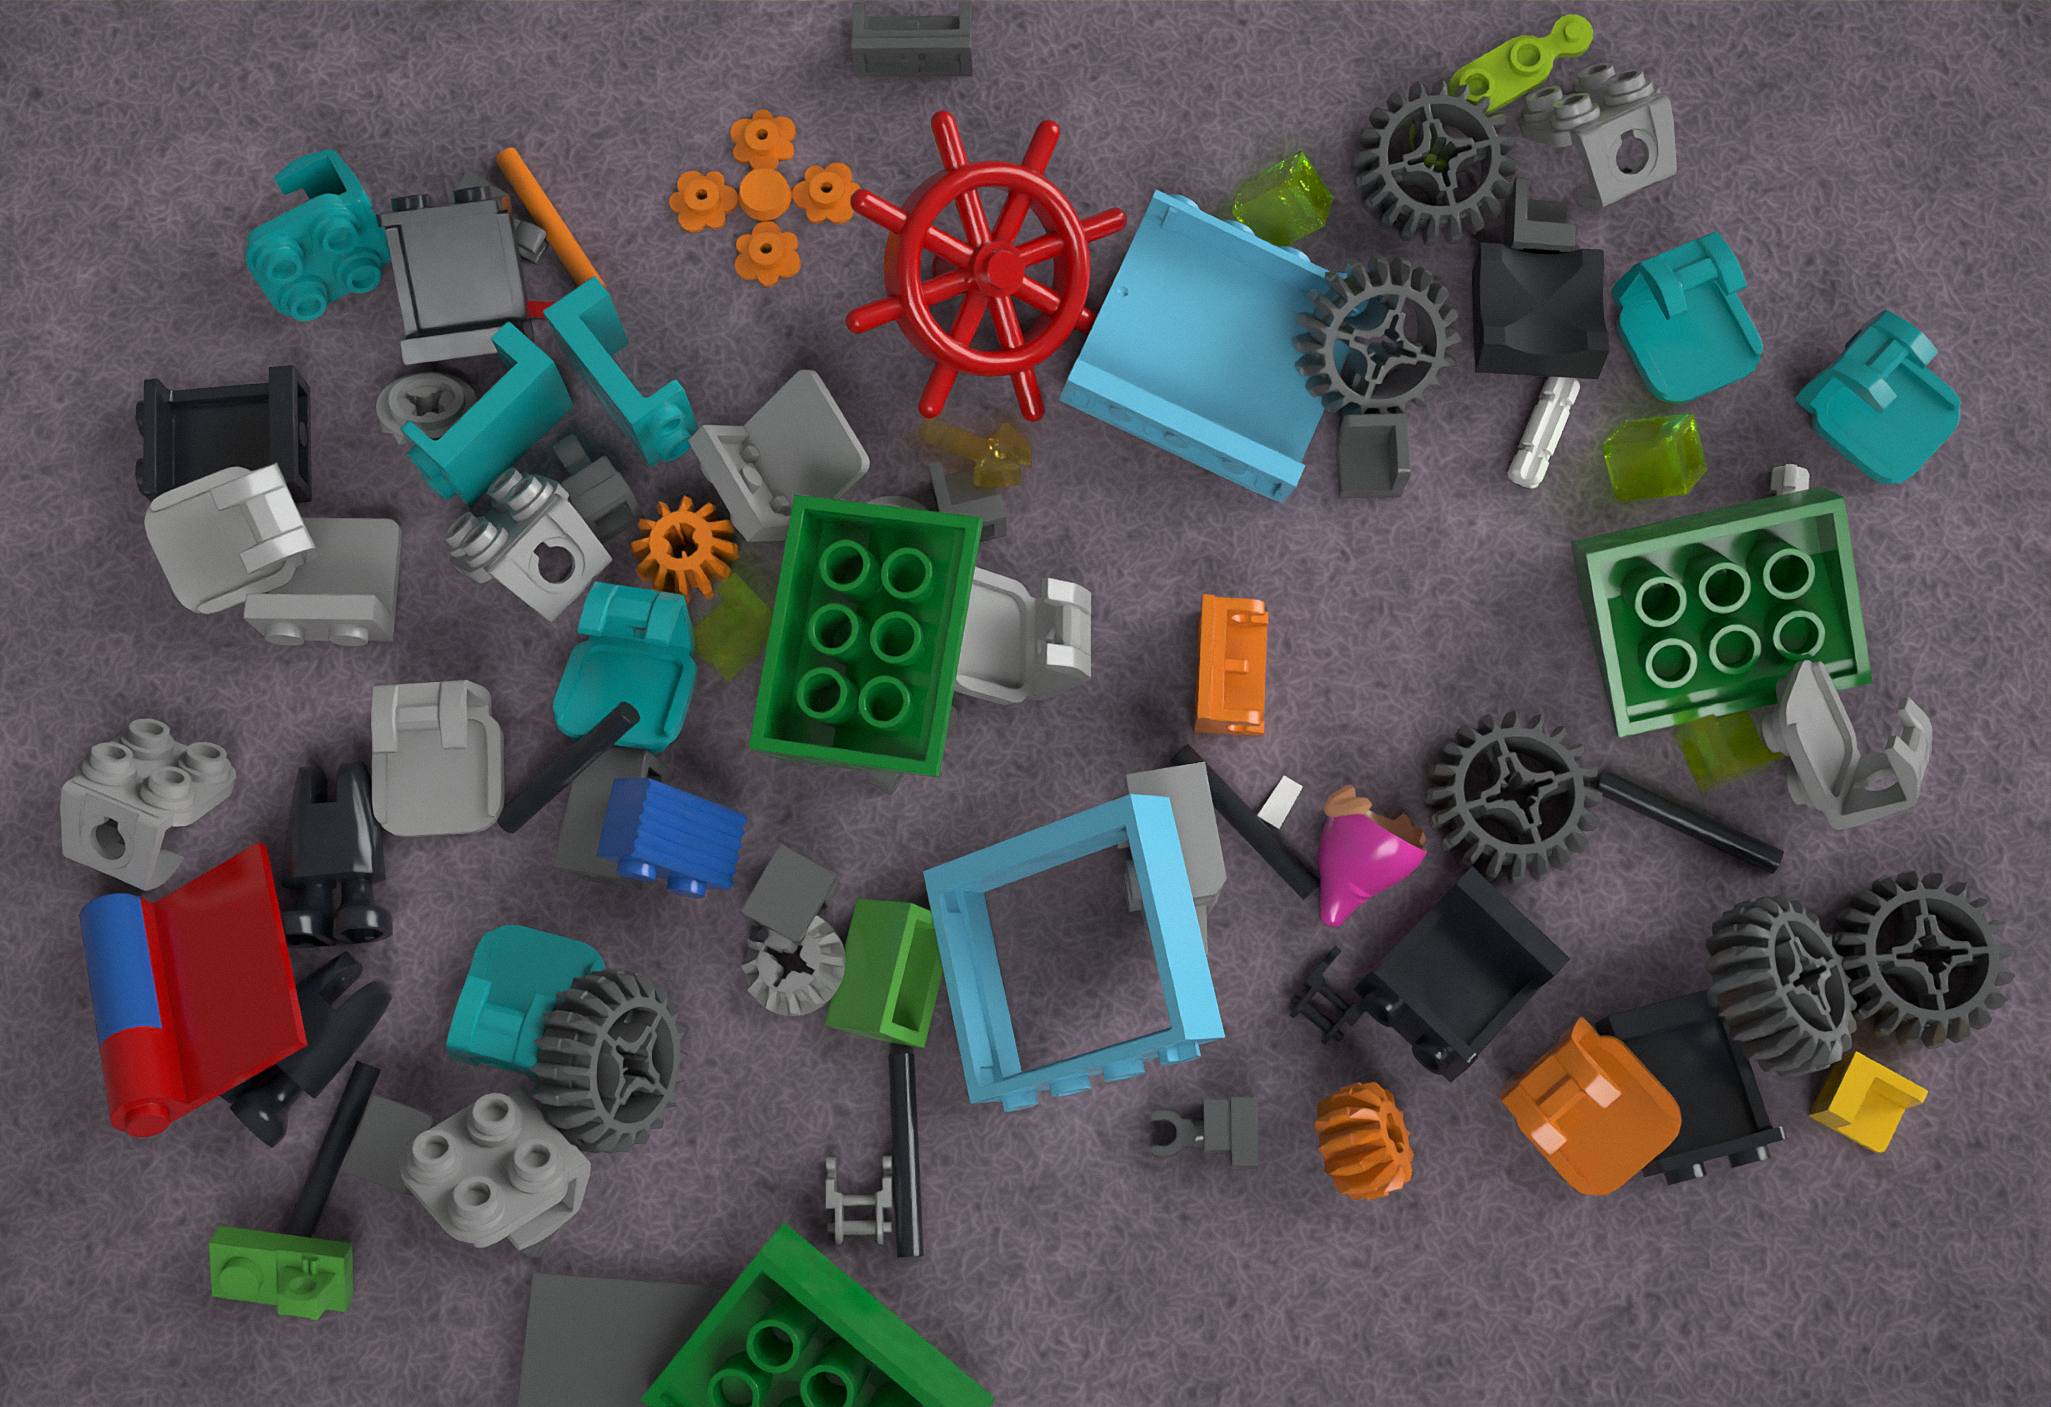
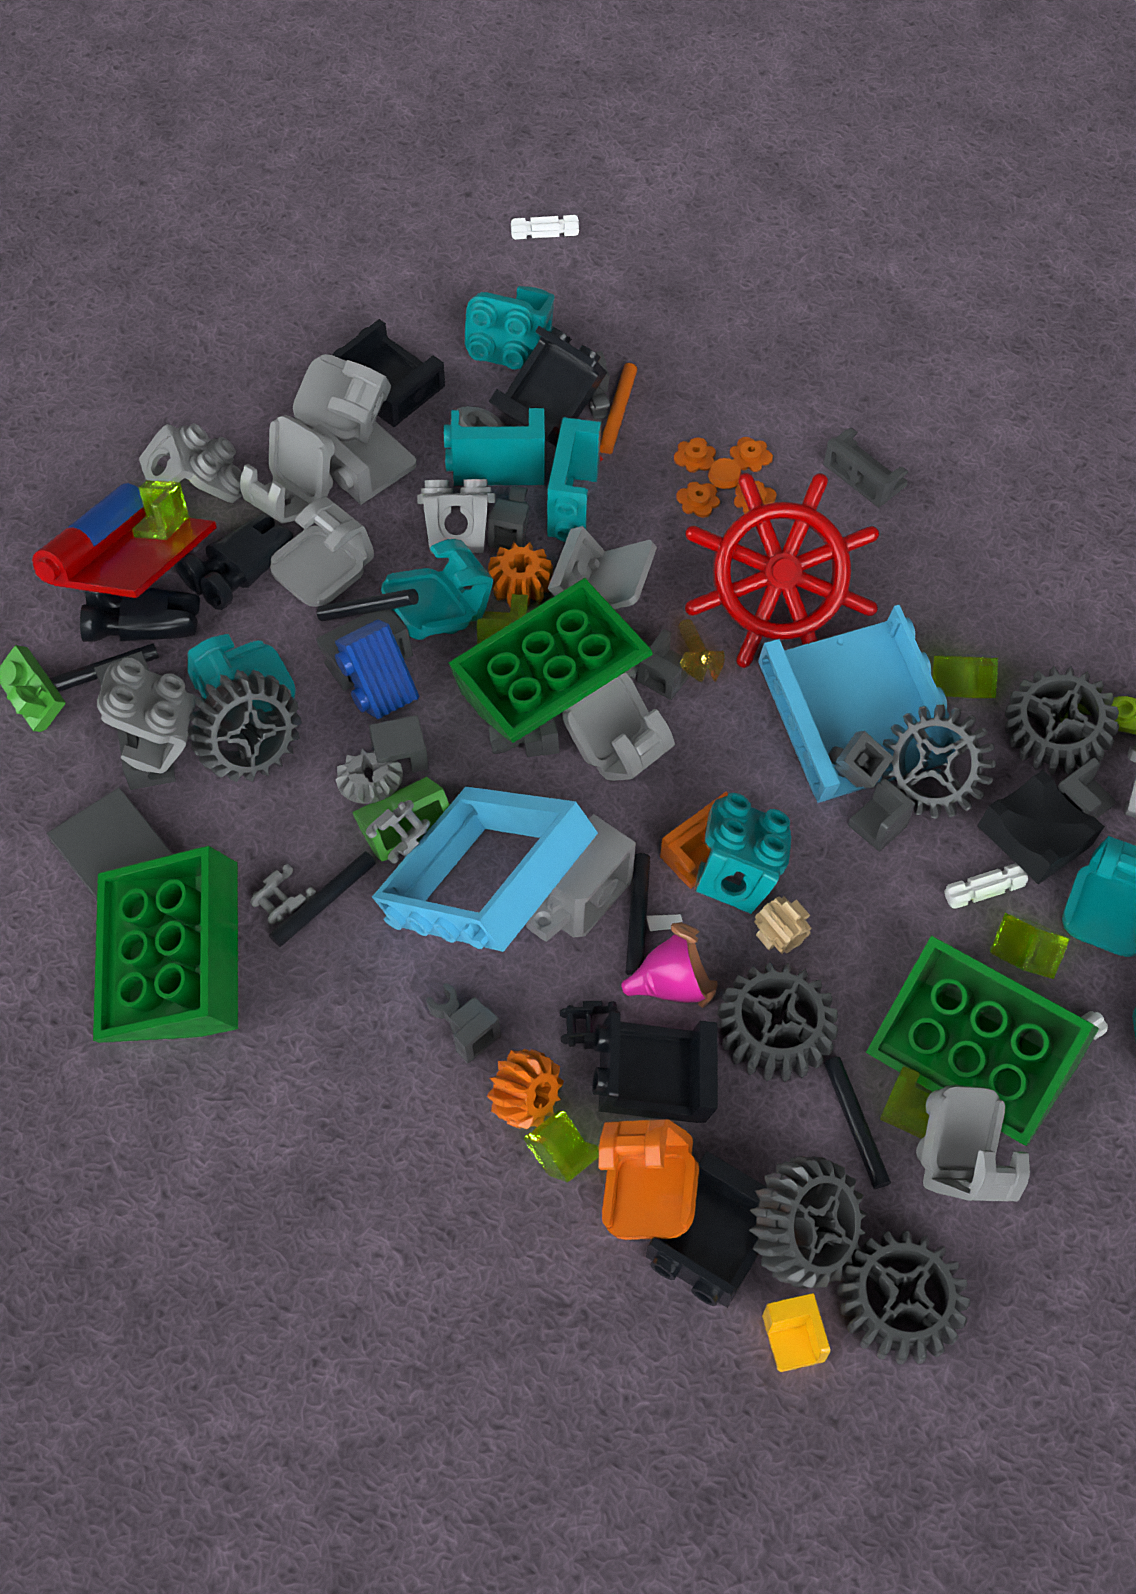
camera: 45 degrees right, 15 degrees down
(184, 896) = (163, 508): none -> clear neon green panel
(188, 55) = (544, 227): none -> white axle
(280, 674) = (299, 470): none -> light grey piece
(902, 997) = (408, 839): none -> light grey piece
(1299, 637) = (746, 843): none -> teal piece
(1306, 421) = (861, 760): none -> dark grey piece
(1408, 685) = (782, 924): none -> tan gear
(1465, 1161) = (561, 1147): none -> clear neon green panel

